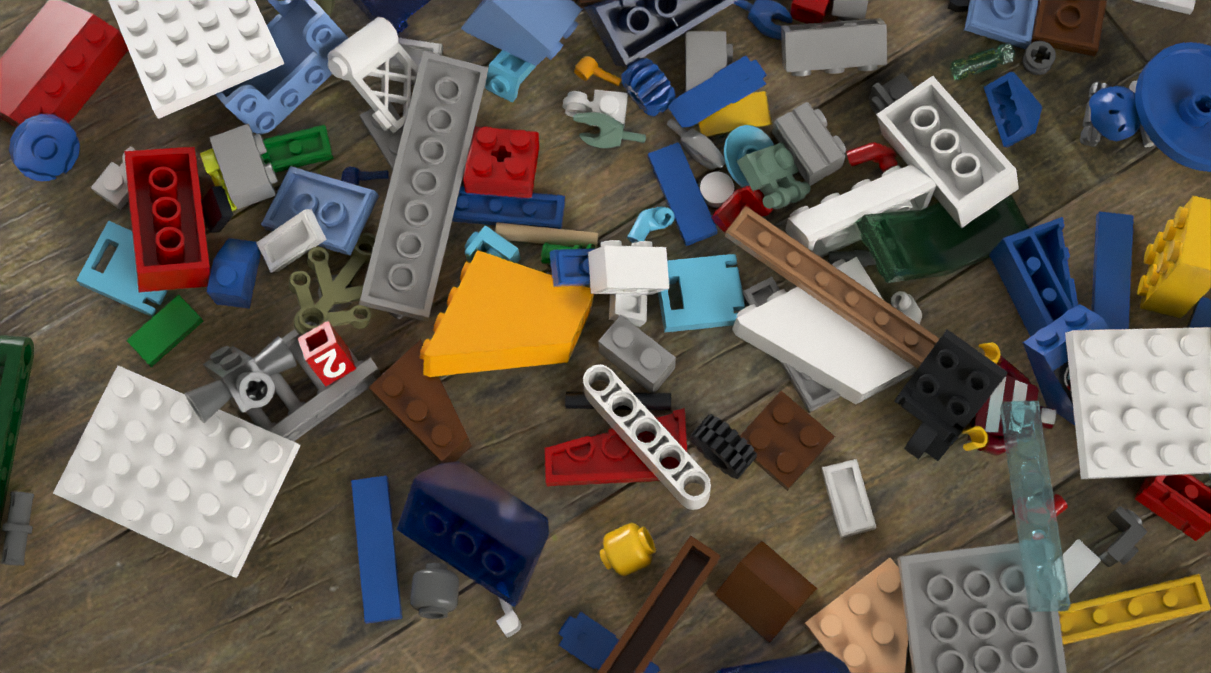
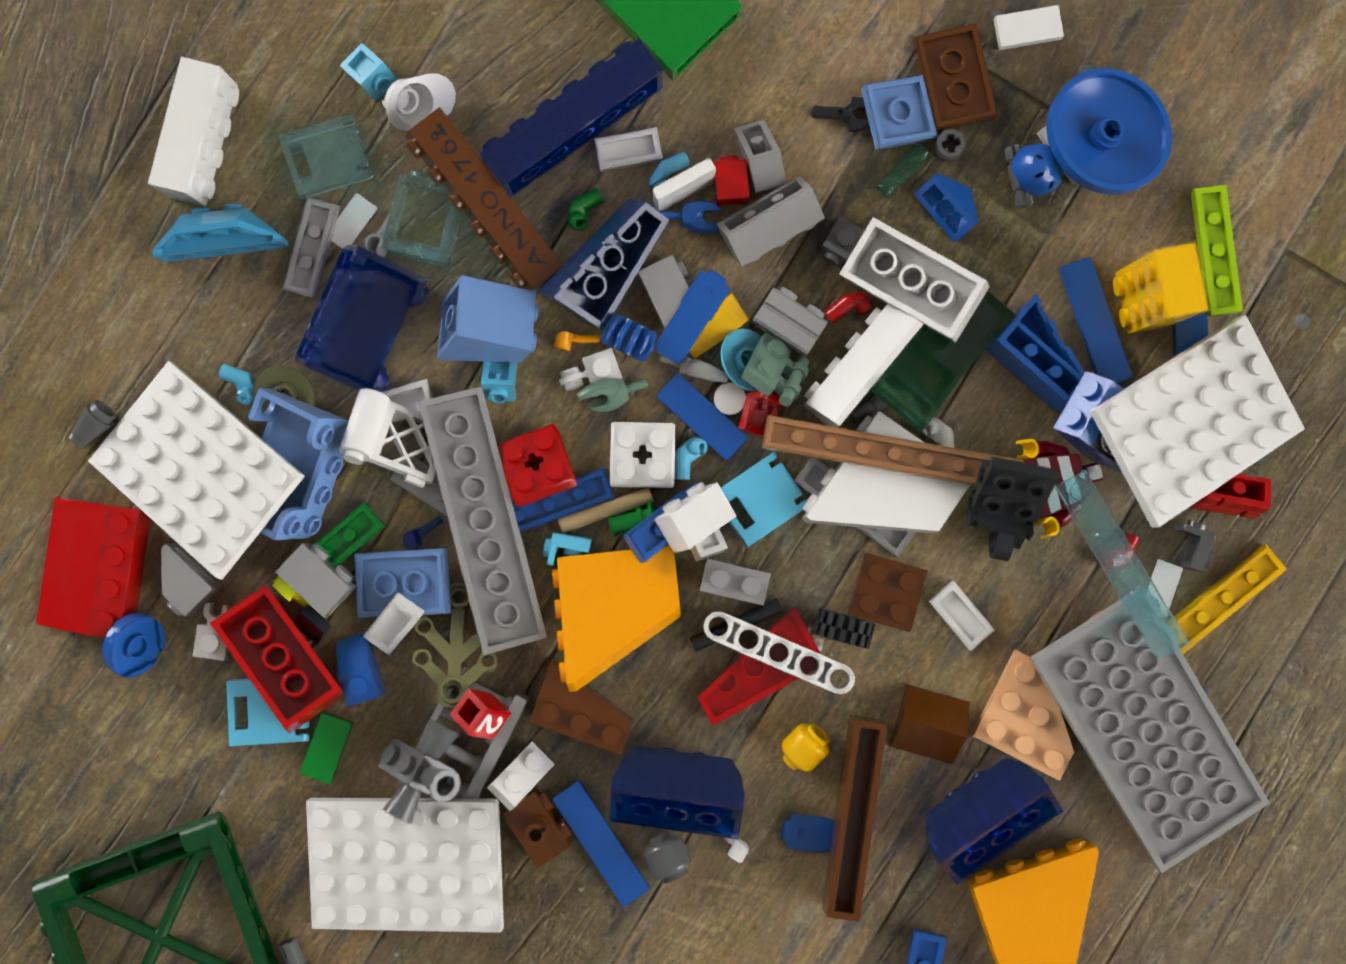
camera: 30 degrees left, 15 degrees up
(122, 118) = (184, 581): none -> light grey slope
(323, 499) = (538, 827): none -> reddish brown brick
(333, 439) = (520, 776): none -> white plate
(603, 180) = (627, 439): none -> white brick

